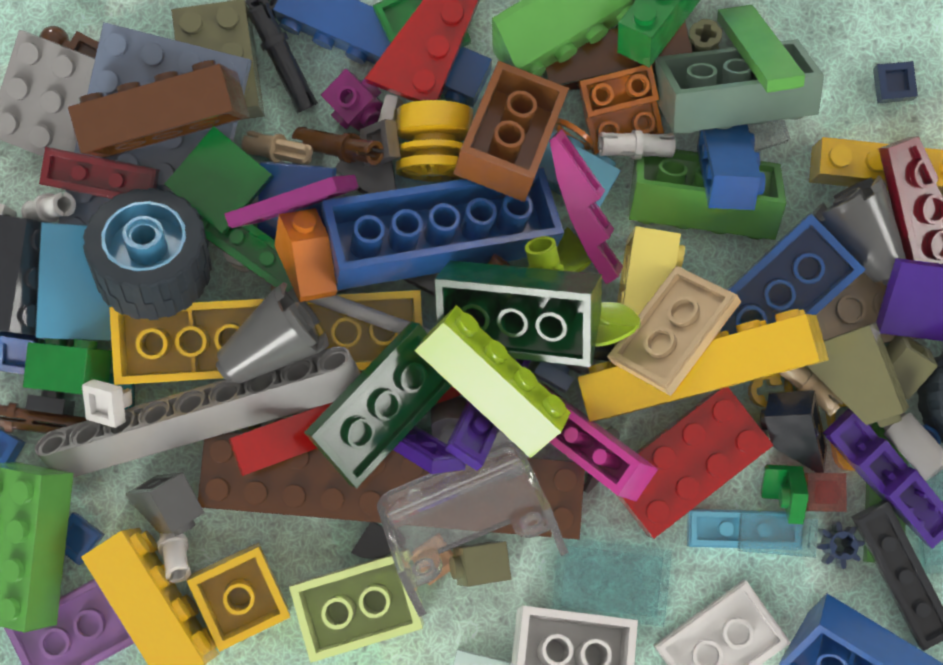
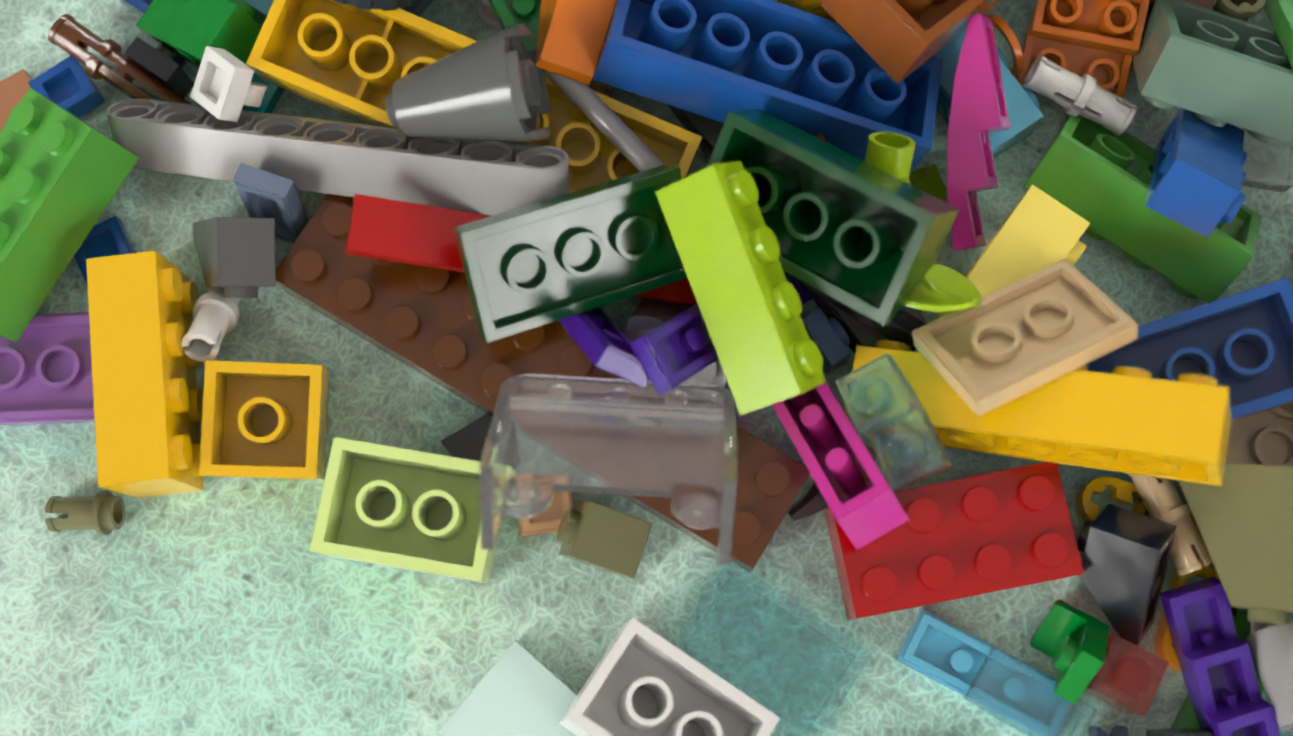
camera: 30 degrees right, 5 degrees down
(173, 459) = (272, 197): none -> sand blue tile
(623, 416) = (894, 420): none -> clear light blue slope

